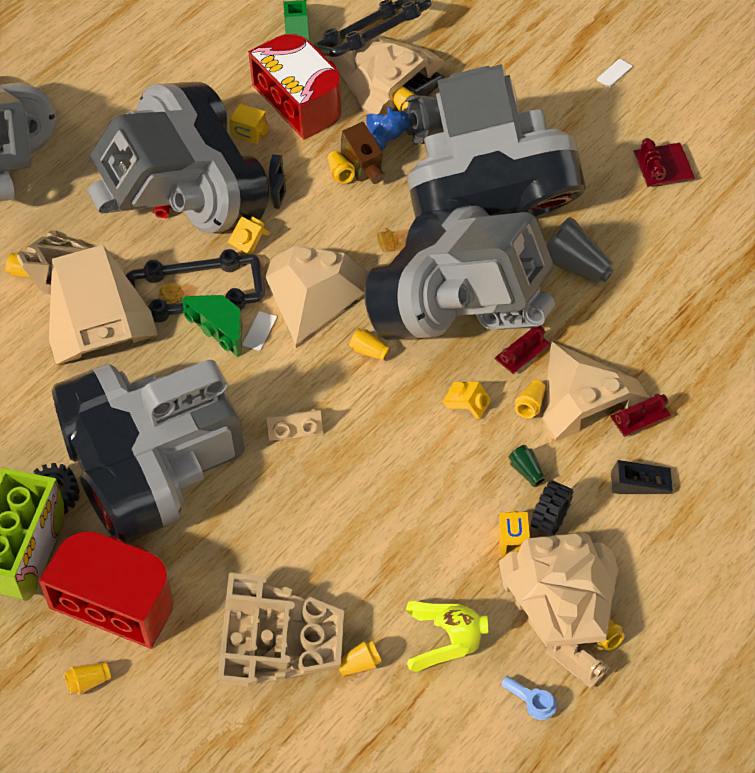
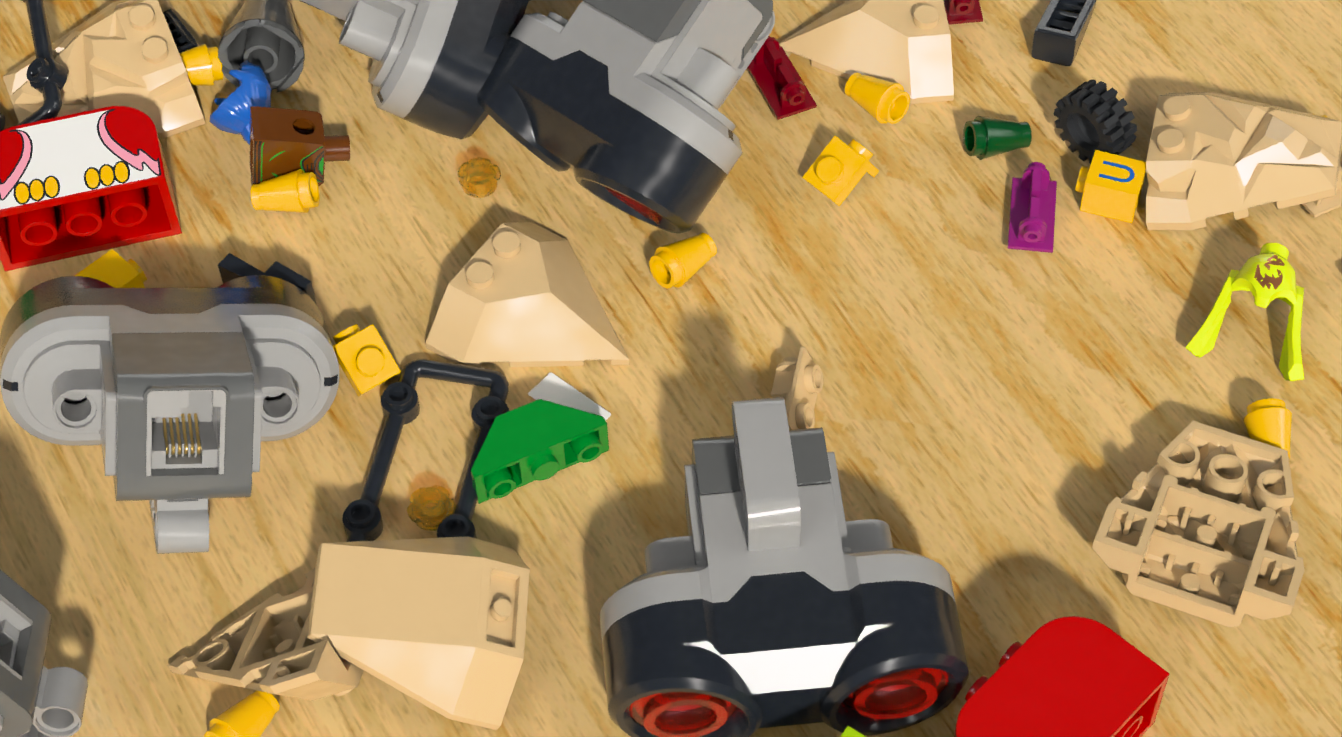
camera: 70 degrees left, 0 degrees up
(479, 500) = (1032, 210): none -> magenta hinge

